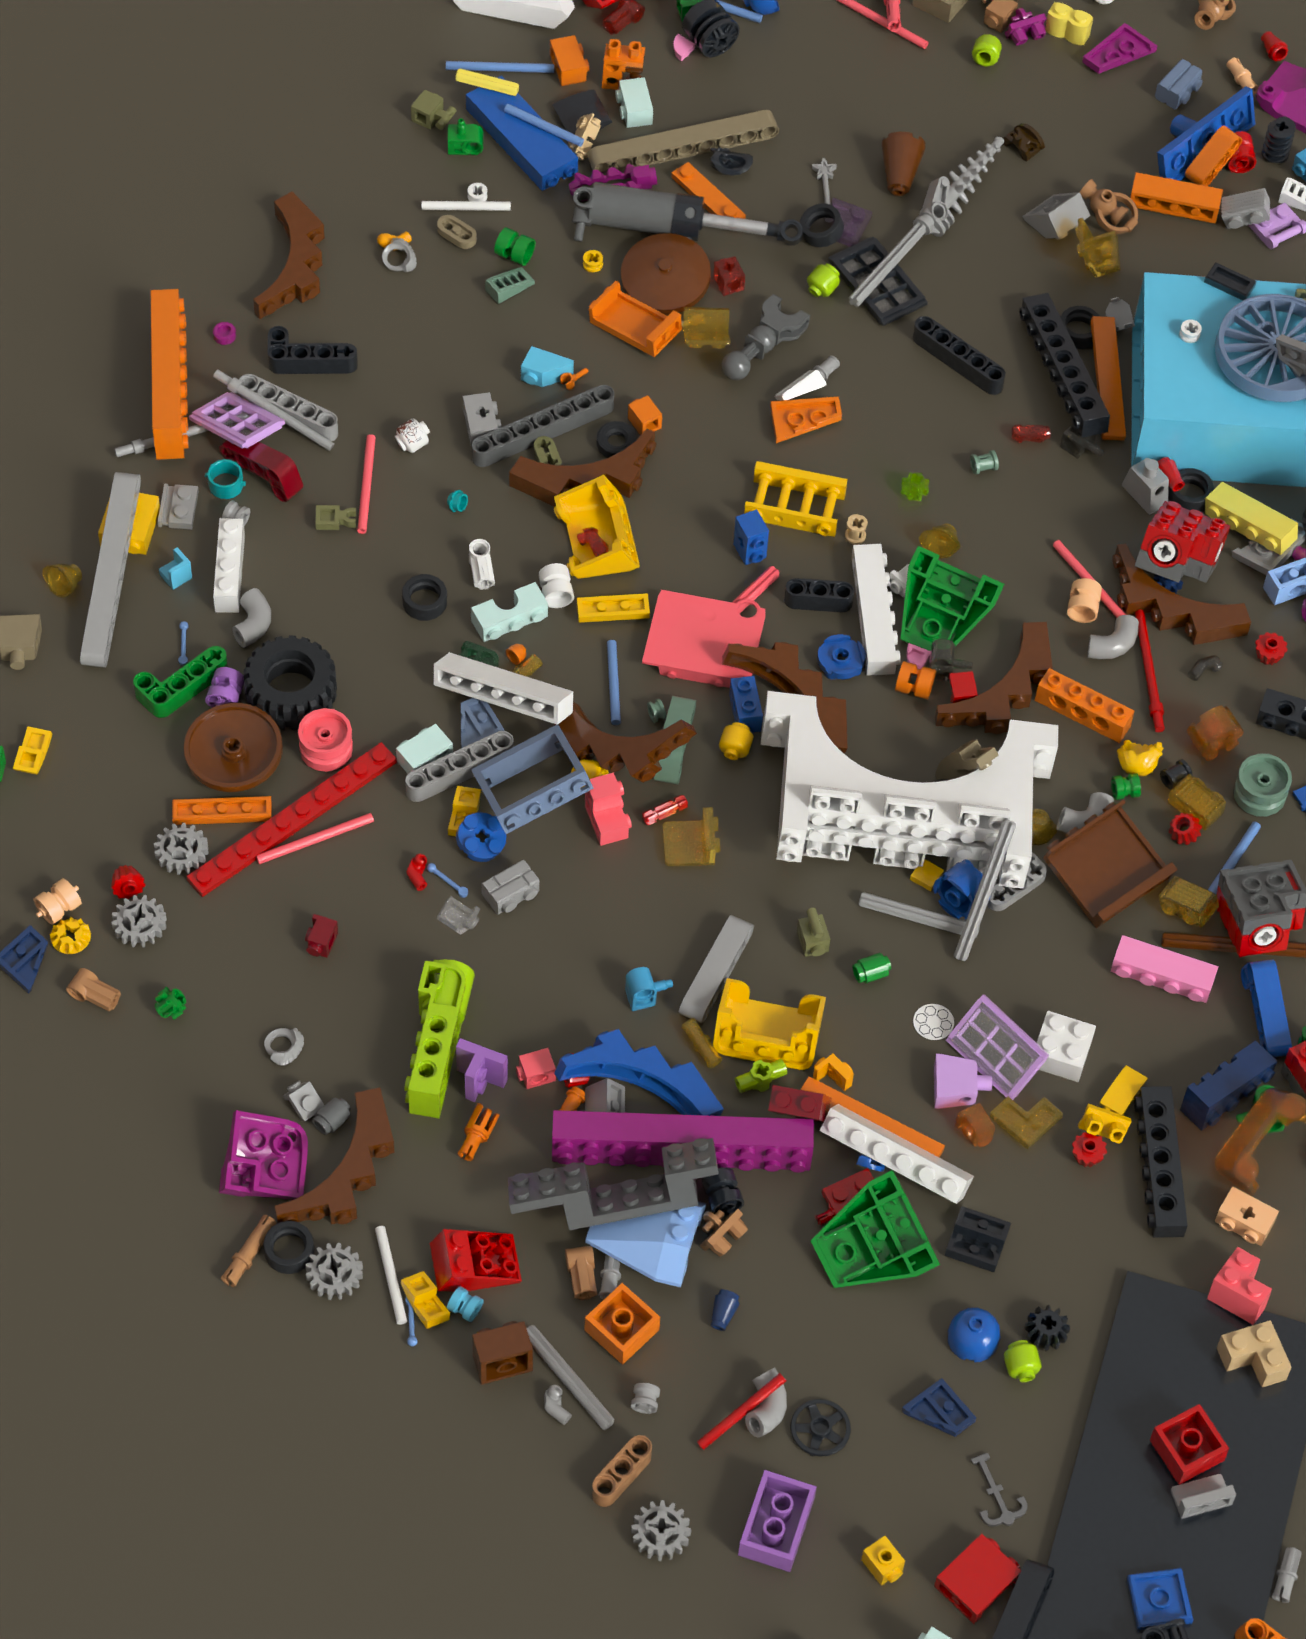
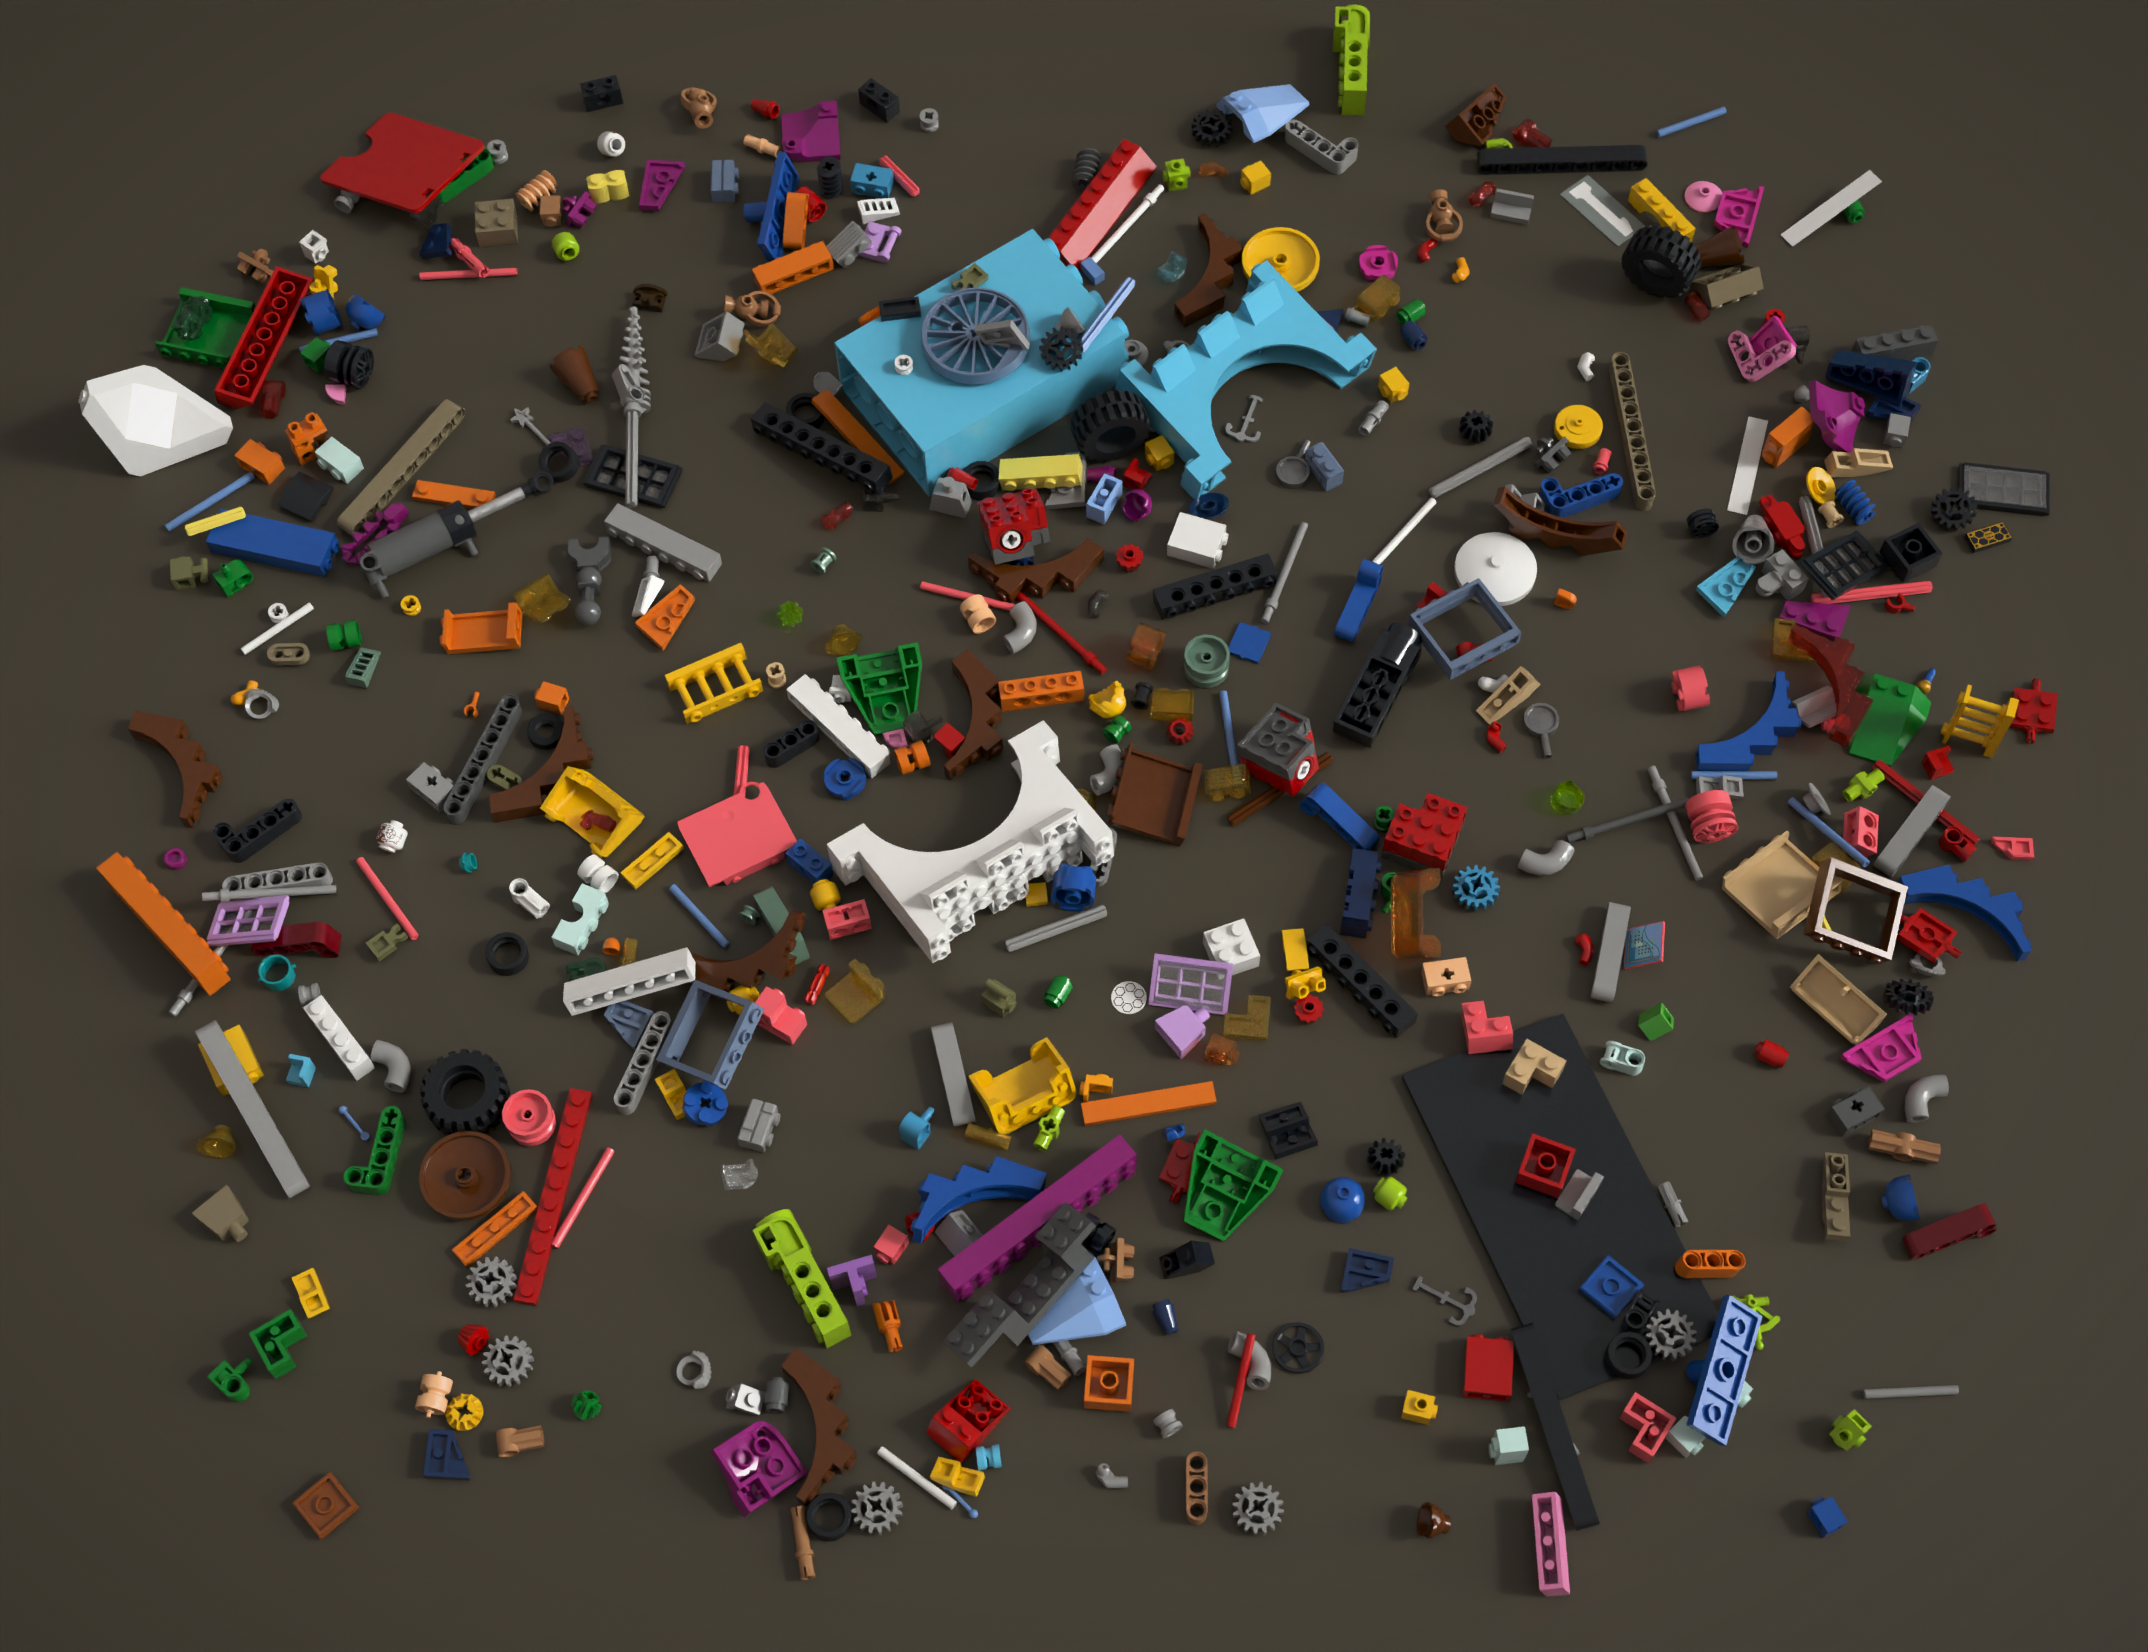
camera: 35 degrees left, 5 degrees up
(178, 506) = (257, 1020): light grey plate -> none
(225, 687) = (419, 1134): medium lavender wheel -> none
(321, 936) = (652, 1268): dark red brick -> none
(415, 871) = (677, 1165): red arm -> none
(423, 748) = (608, 1070): light aqua brick -> none
(462, 891) = (724, 1154): medium blue hinge -> none
(502, 1352) = (1047, 1471): reddish brown brick -> none
(544, 125) = (287, 525): medium blue bar -> none
(544, 367) = (446, 713): medium azure slope -> none
(569, 1378) = (1102, 1451): light grey axle -> none
(574, 1098) = (936, 1251): orange pin -> none
(586, 127) = (321, 504): tan hinge -> none
(666, 272) = (474, 577): reddish brown dish -> none
(729, 271) = (522, 547): clear red brick -> none
(730, 162) = (450, 458): black hat -> none
(736, 773) = (847, 919): none -> coral brick
(751, 537) = (709, 735): blue brick -> none
(777, 1521) = (1329, 1438): medium lavender brick -> none
(782, 669) = (814, 818): reddish brown arch -> none
(786, 1276) = (1187, 1259): none -> black slope
(799, 1103) = (1098, 1129): dark red brick -> none
(823, 280) = (594, 503): lime head -> none
(854, 353) = (663, 543): none -> light grey brick
(896, 1153) = (1188, 1112): white brick -> none
(959, 355) = (729, 488): black beam -> none
(965, 759) = (1002, 791): dark tan slope -> none
(984, 890) = (1095, 877): light grey axle -> none
(1164, 969) = (1250, 842): bright pink brick -> none

